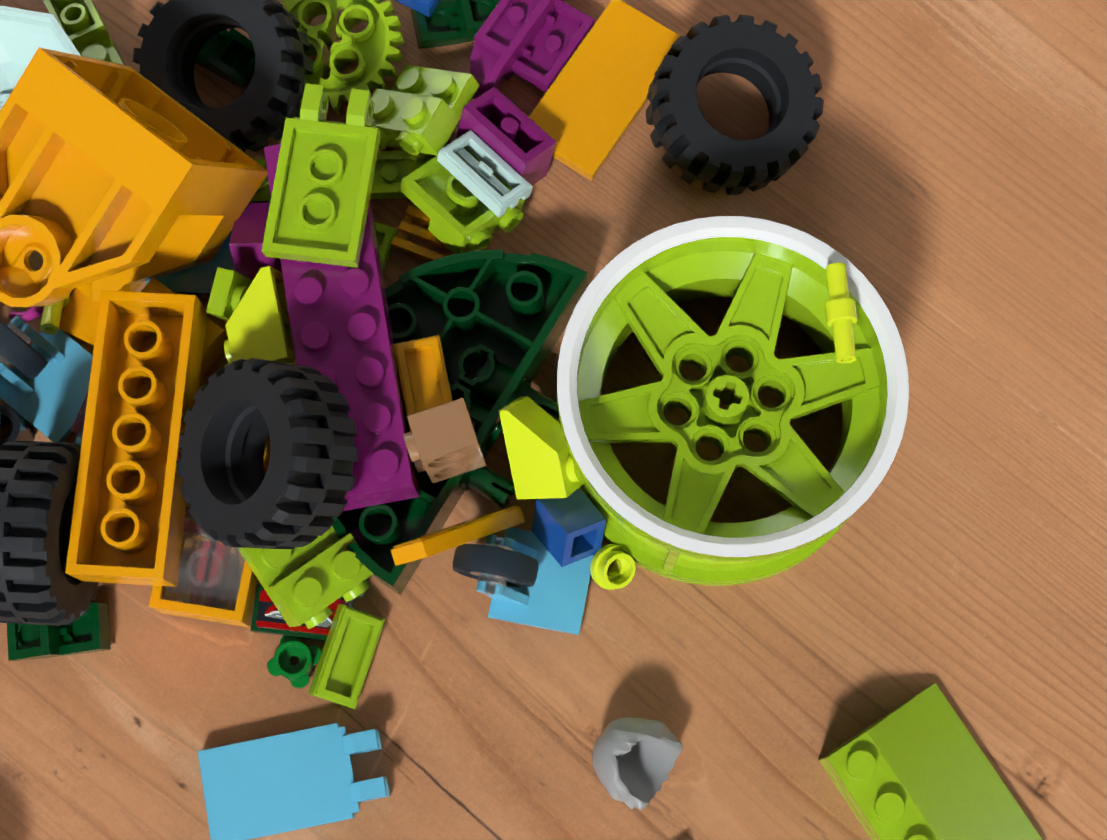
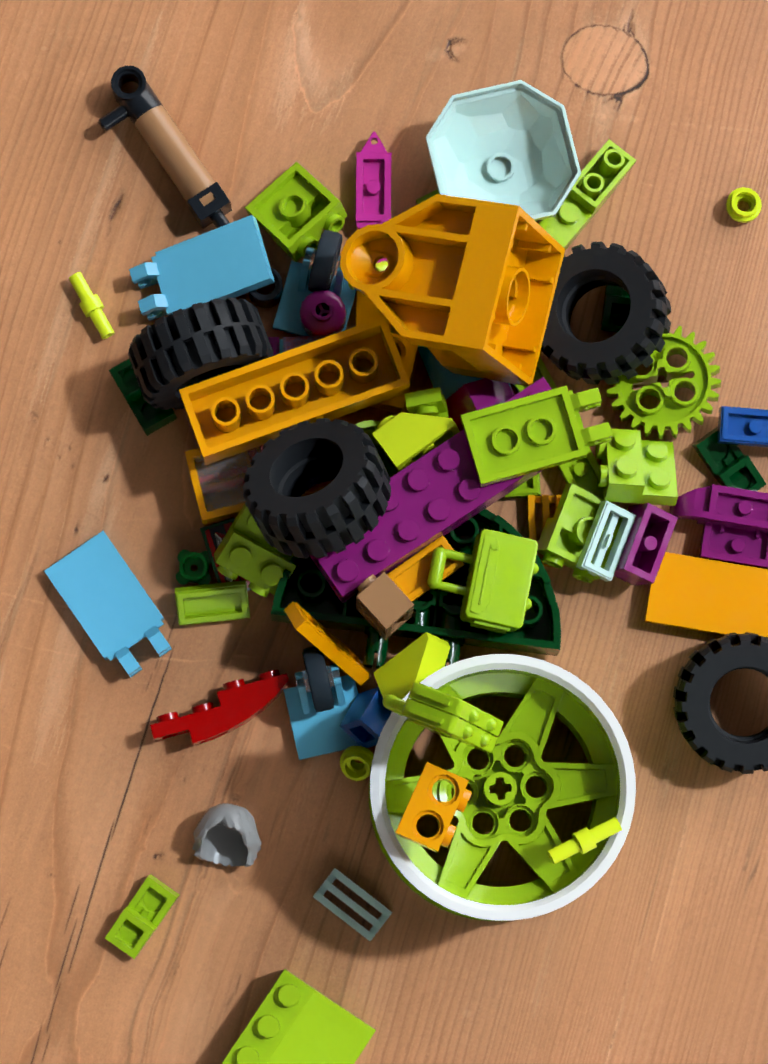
camera: 60 degrees right, 5 degrees up
(64, 373) = (329, 305): none -> magenta head
(474, 304) = (495, 582): none -> lime piece
(484, 680) = (237, 706): none -> red slope
(624, 400) = (447, 716): none -> lime piece
(715, 481) = (424, 804): none -> light orange brick
(810, 627) = (377, 923): none -> light aqua tile

